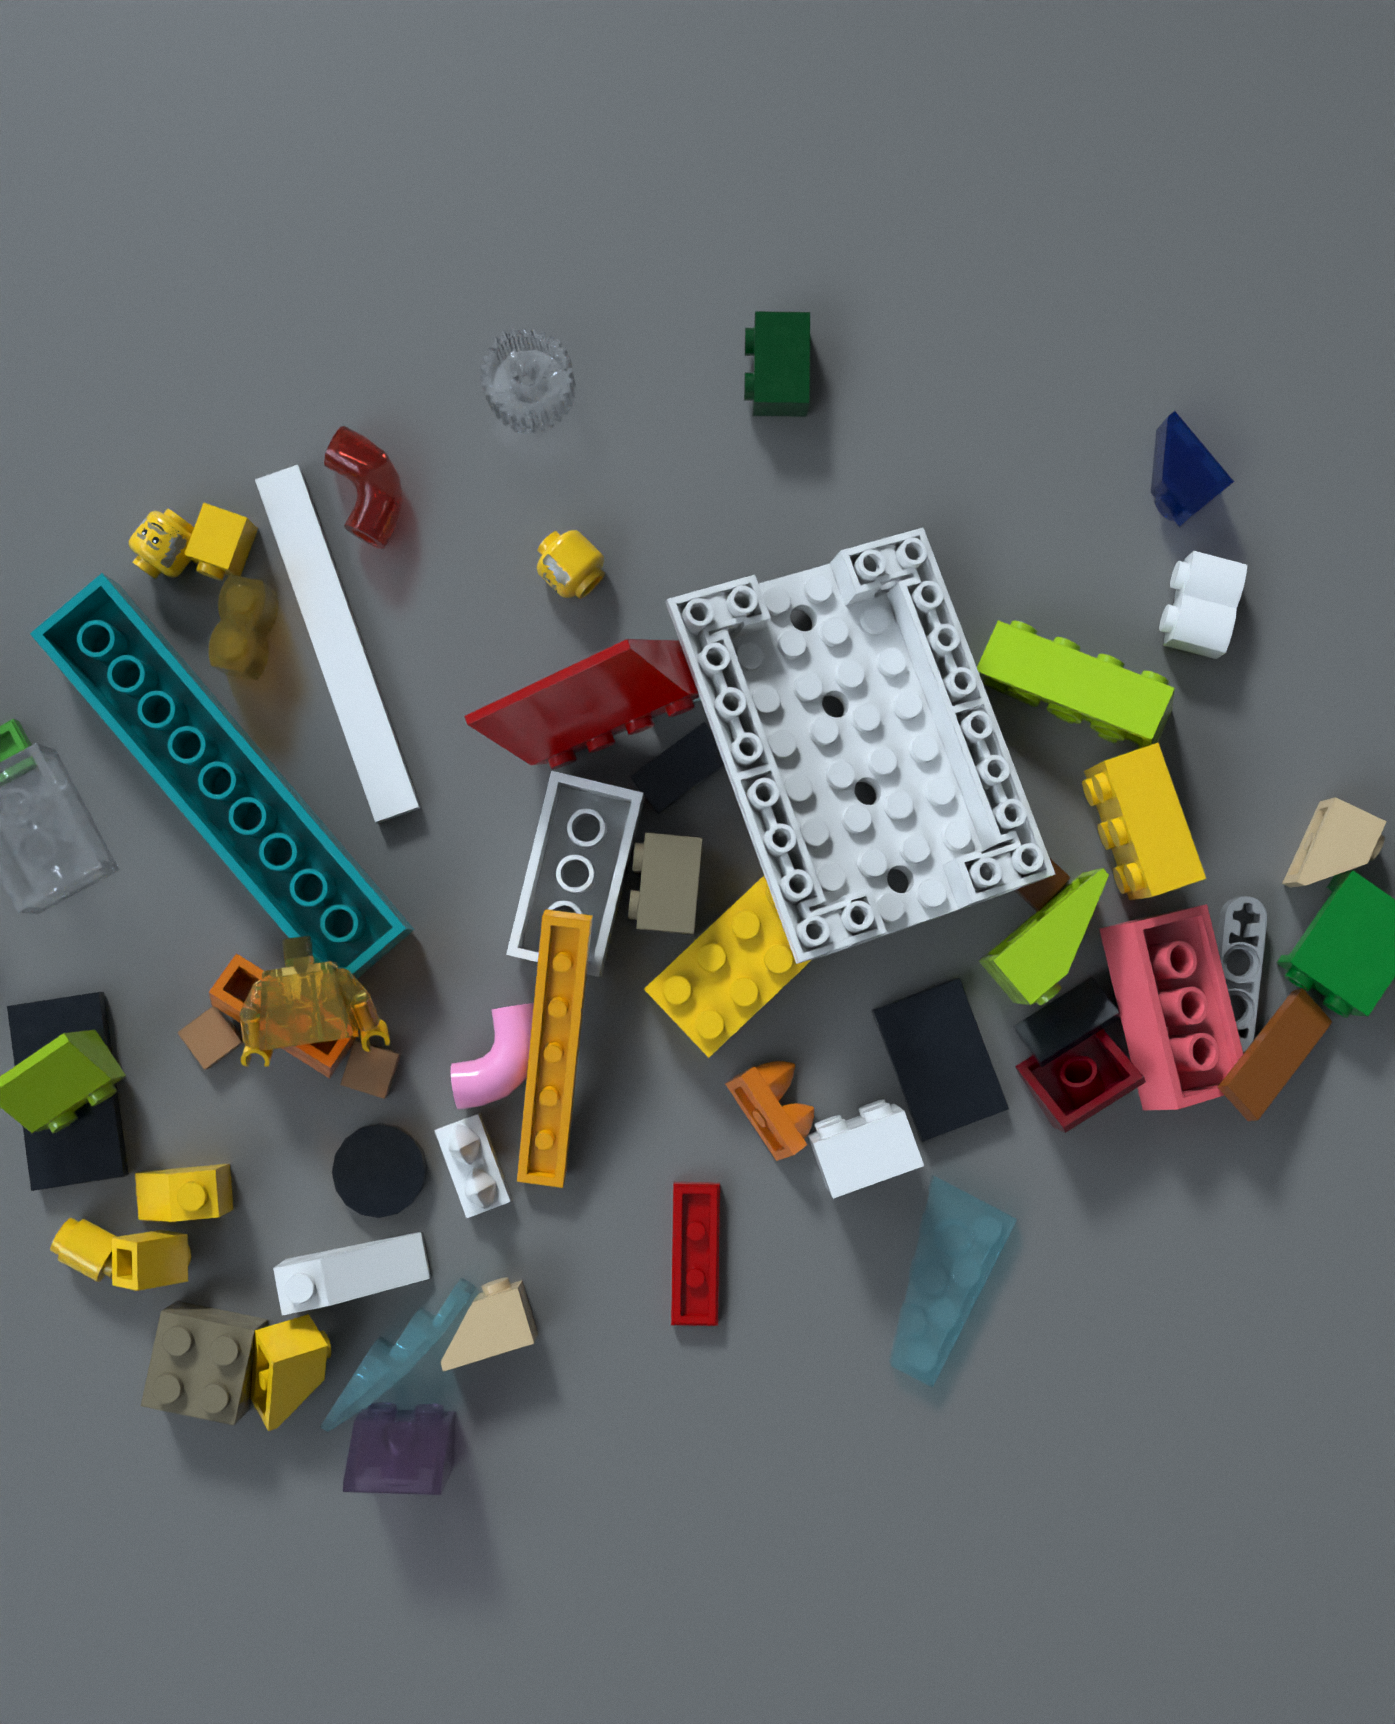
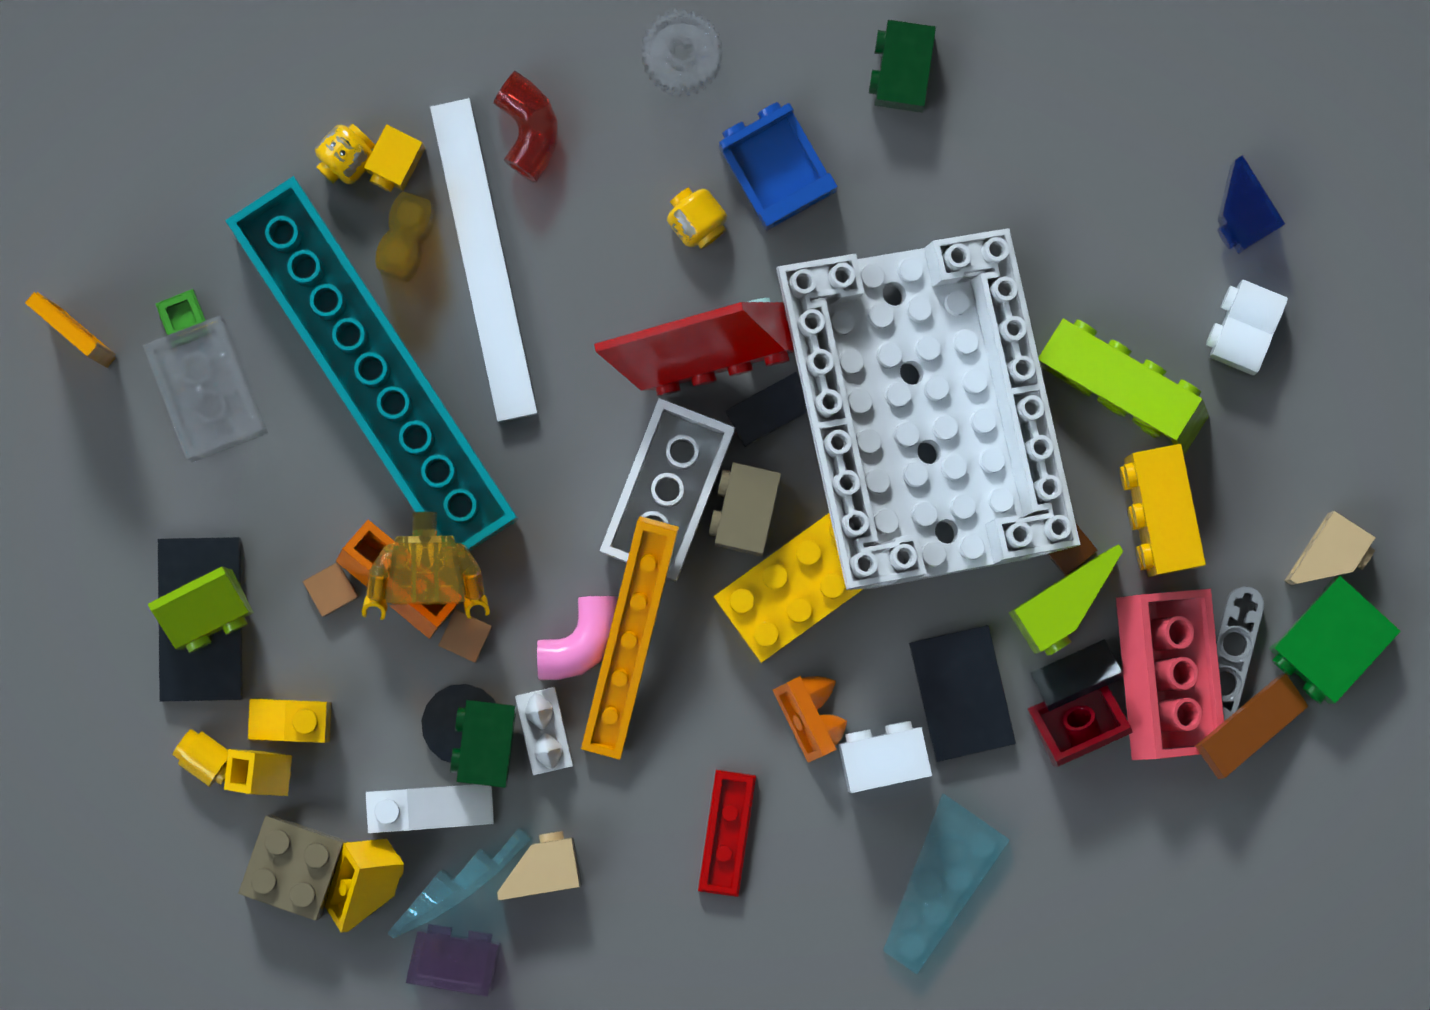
camera: 10 degrees right, 0 degrees up
(404, 1192) = (484, 744): none -> dark green brick
(651, 494) = (776, 165): none -> blue panel

